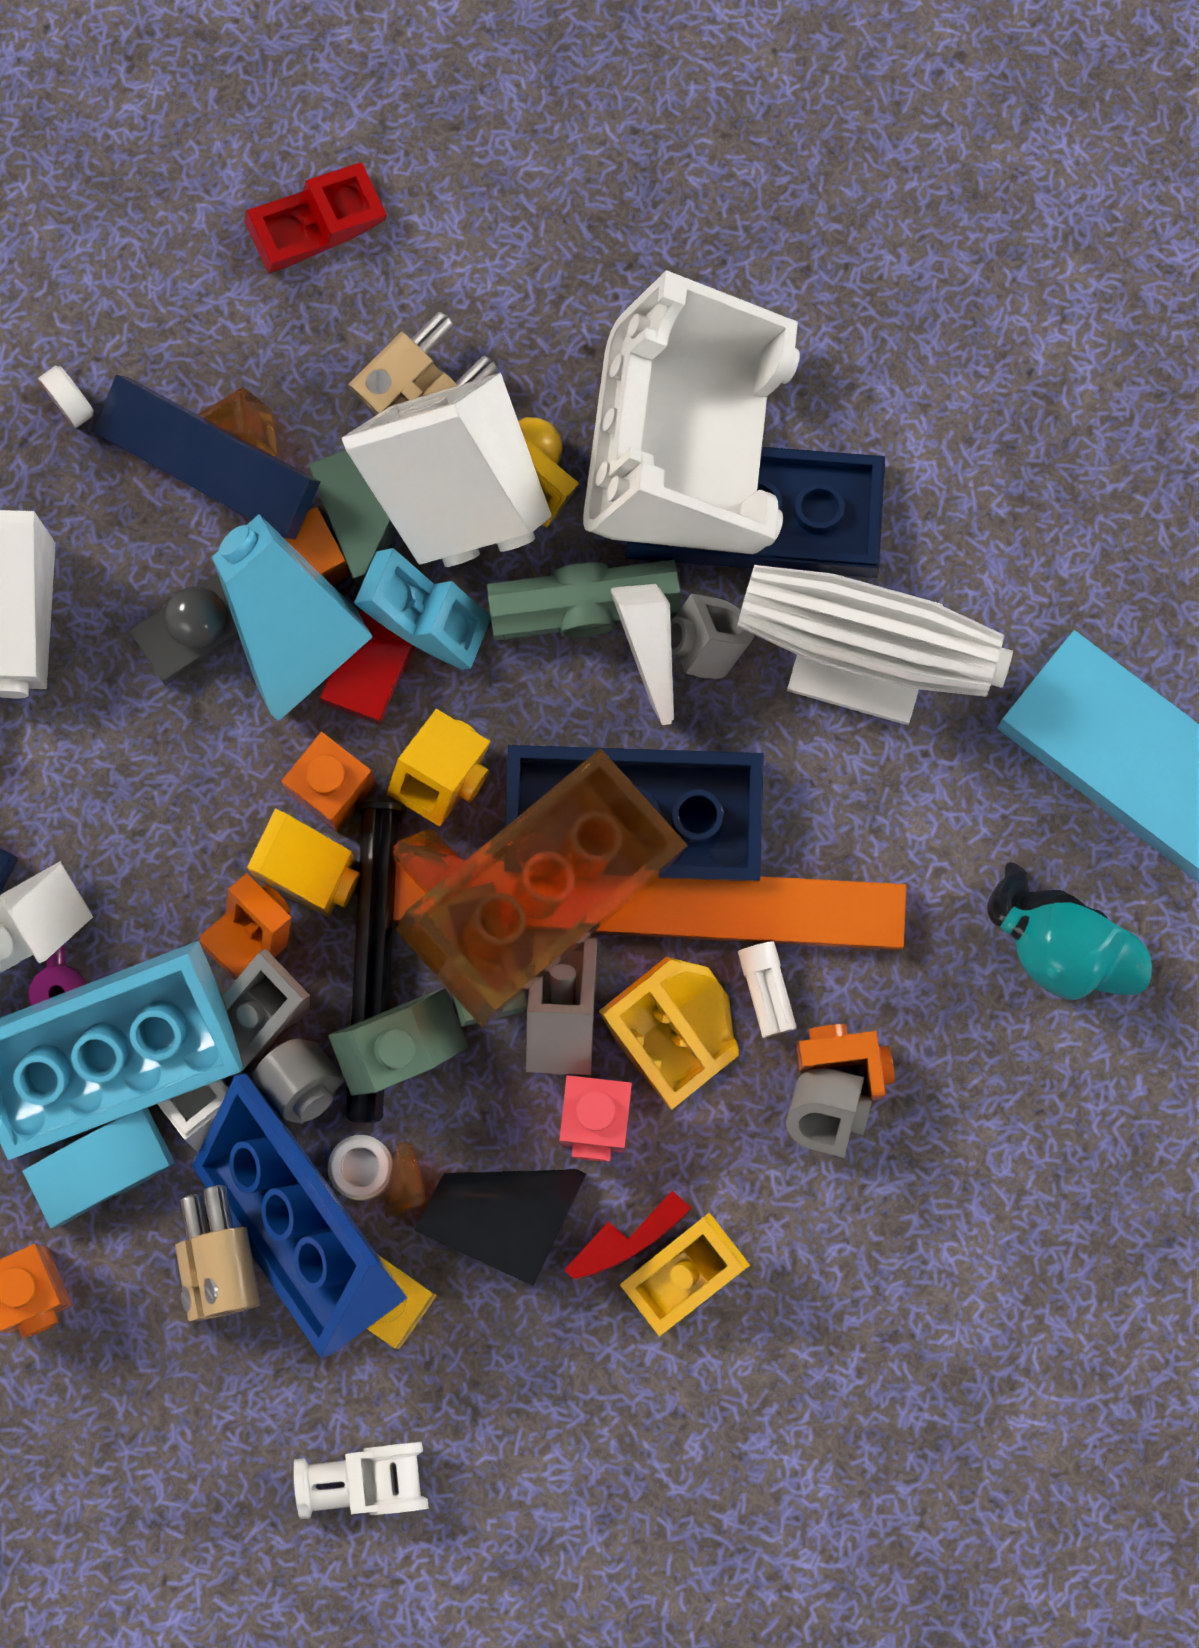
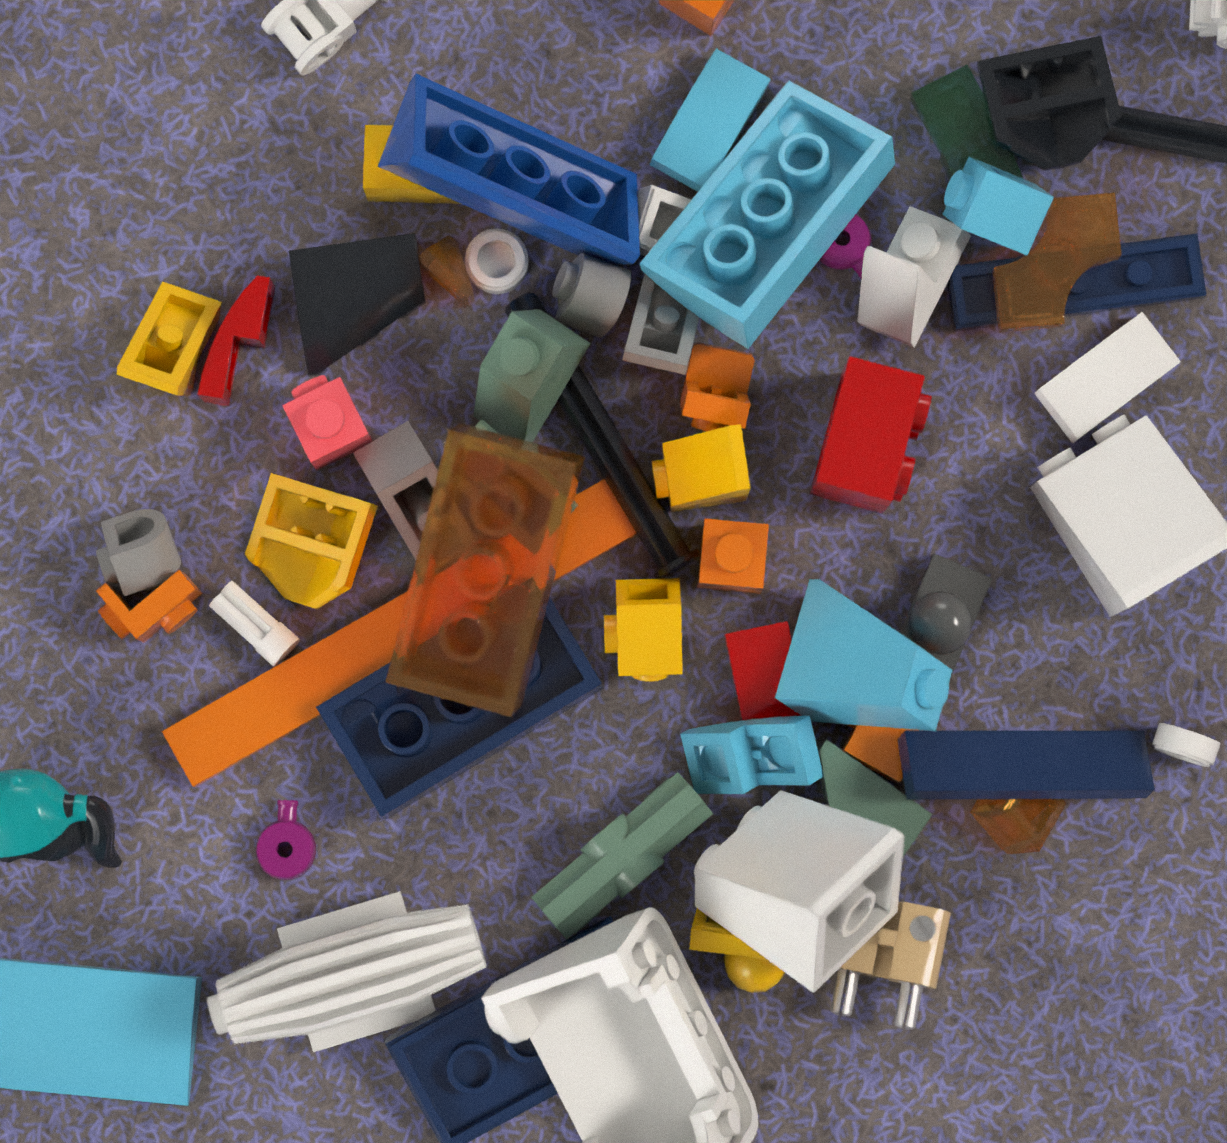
camera: 145 degrees right, 5 degrees up
(148, 801) = (868, 436): none -> red brick
(215, 1265) = (560, 103): tan piece -> none
(314, 220) = (1083, 1049): red slope -> none
(426, 858) = (598, 542): clear orange slope -> none
(647, 626) = (544, 856): white slope -> none
(708, 636) = (495, 888): light grey plate -> none
(850, 799) = (286, 830): none -> magenta piece

